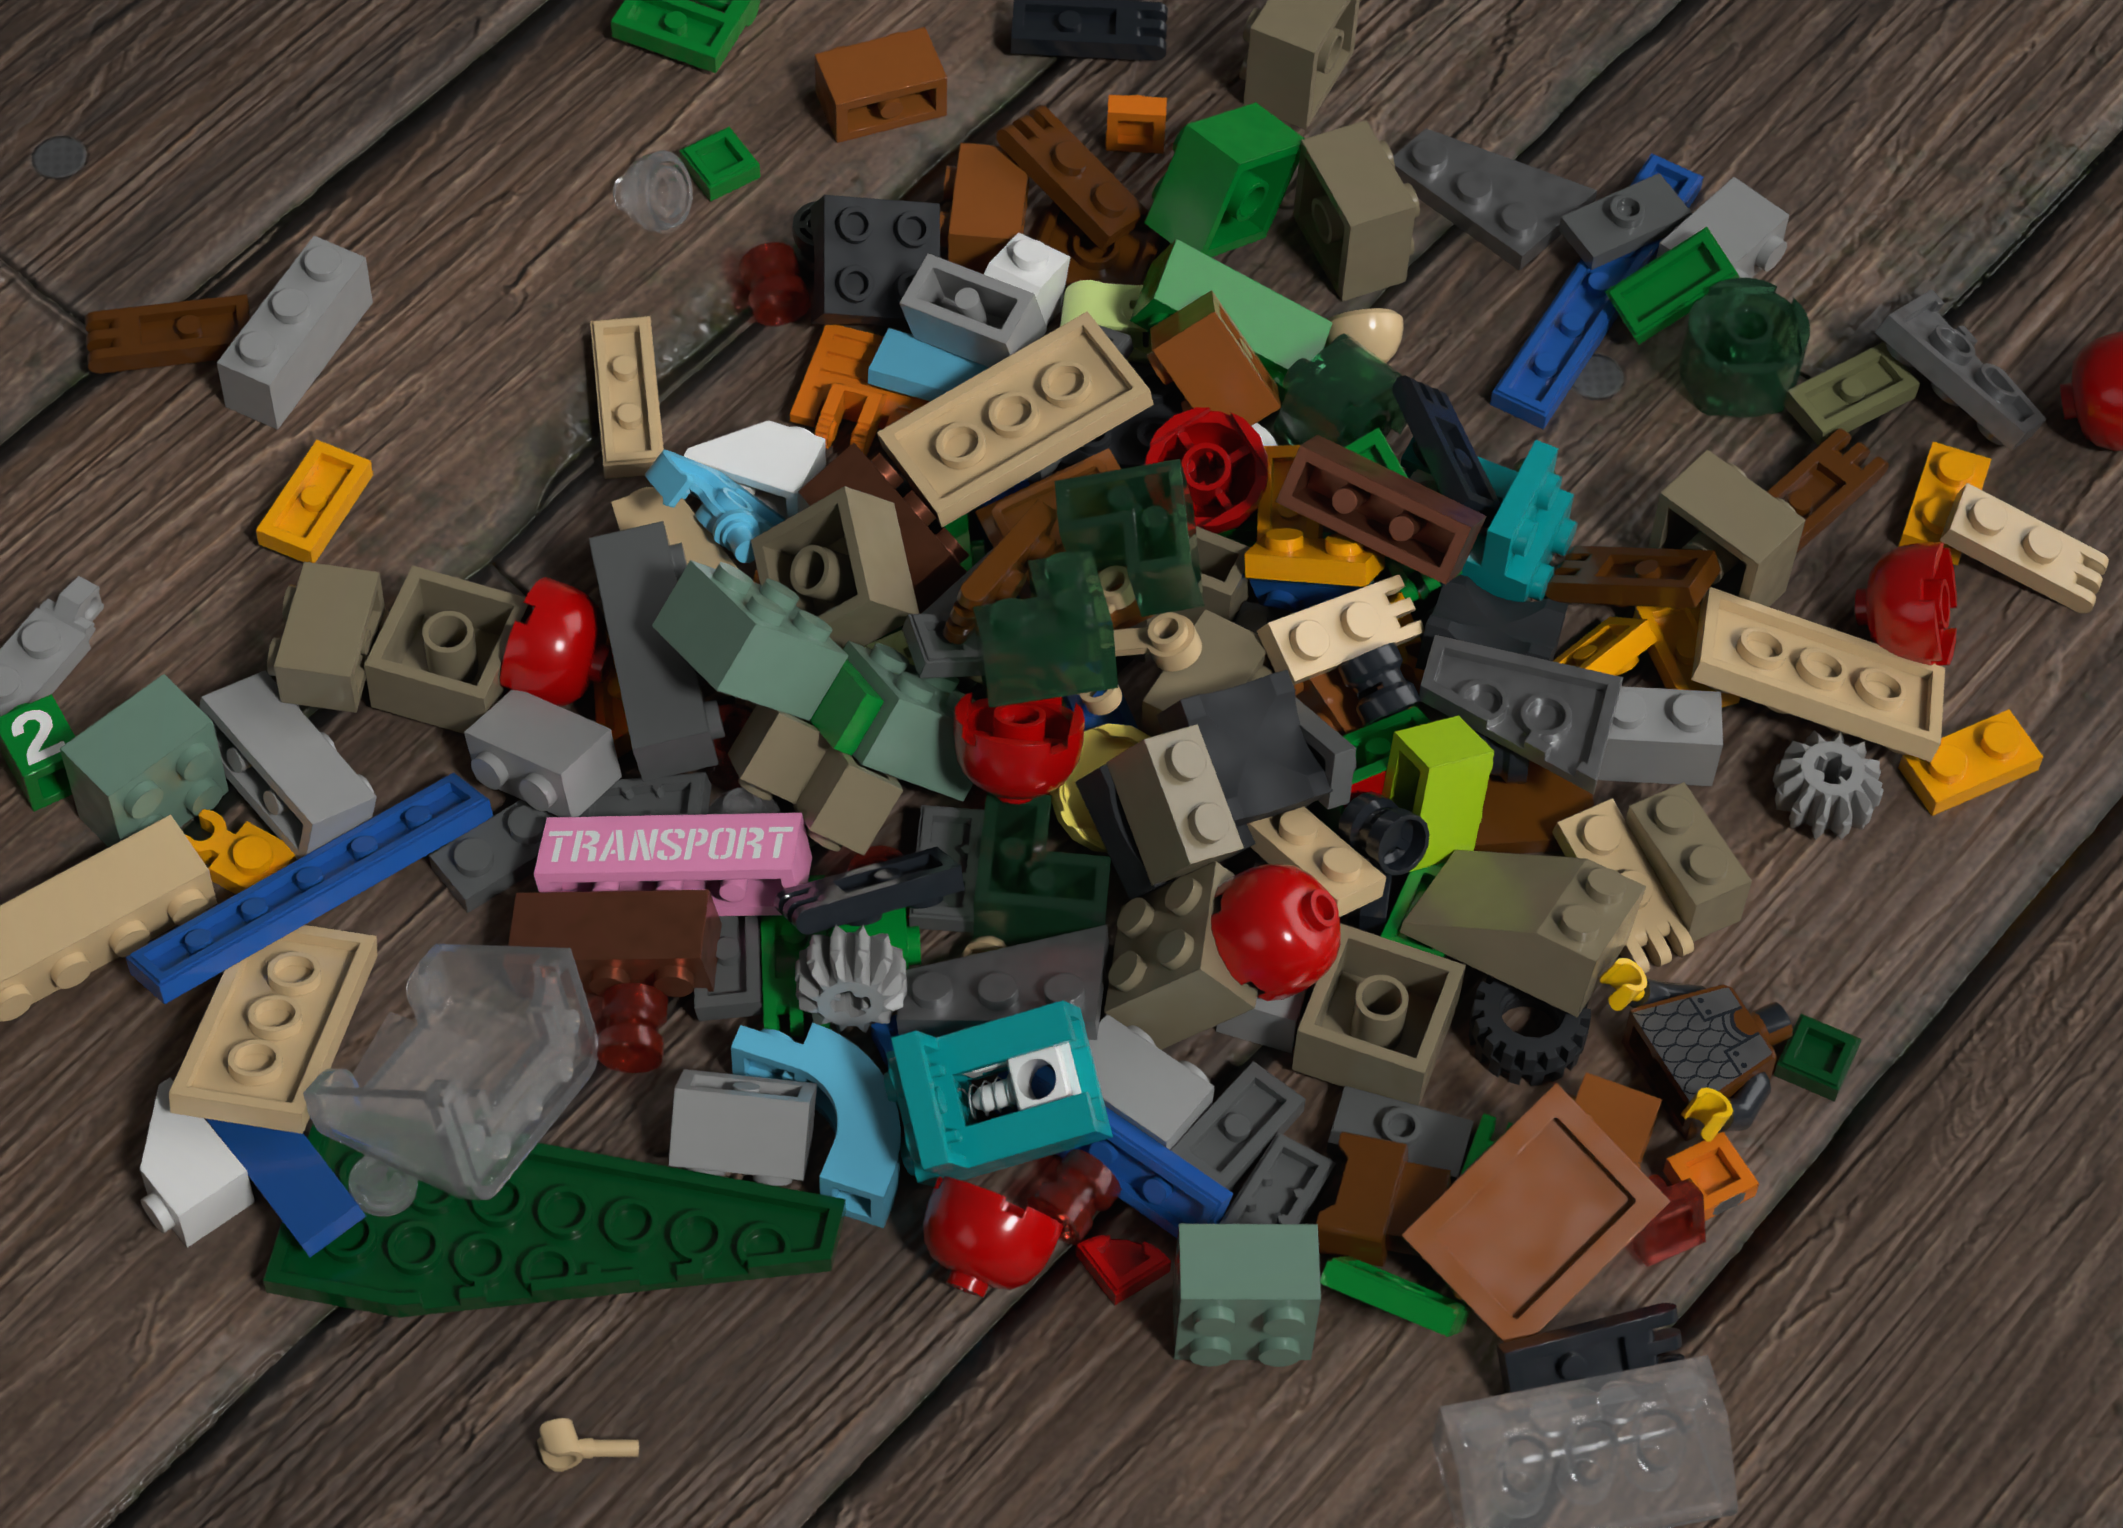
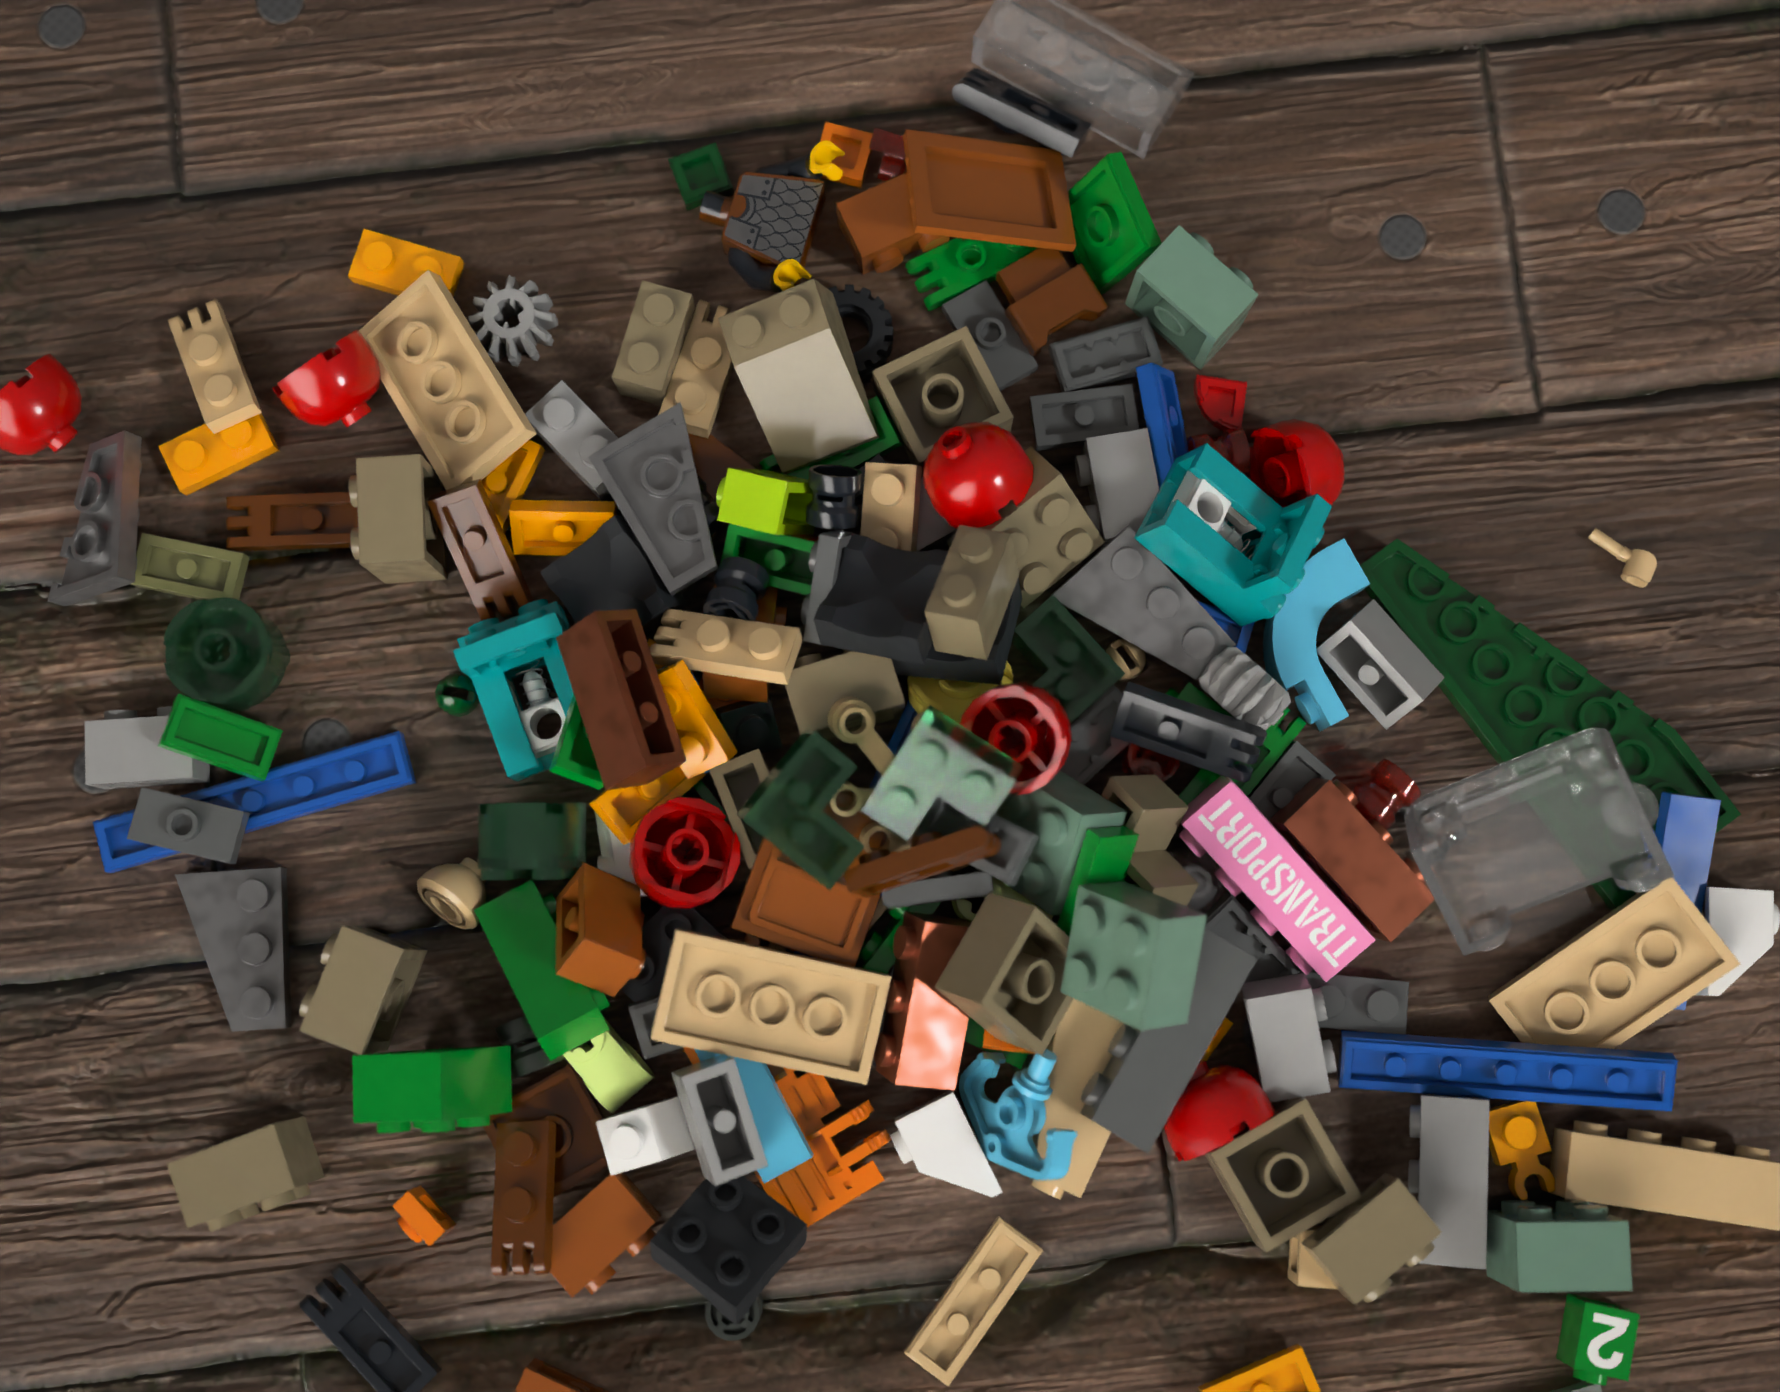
camera: 135 degrees left, 25 degrees up
(775, 288) = (799, 1301): clear red wheel -> none
(1445, 447) = (513, 730): black hinge -> none

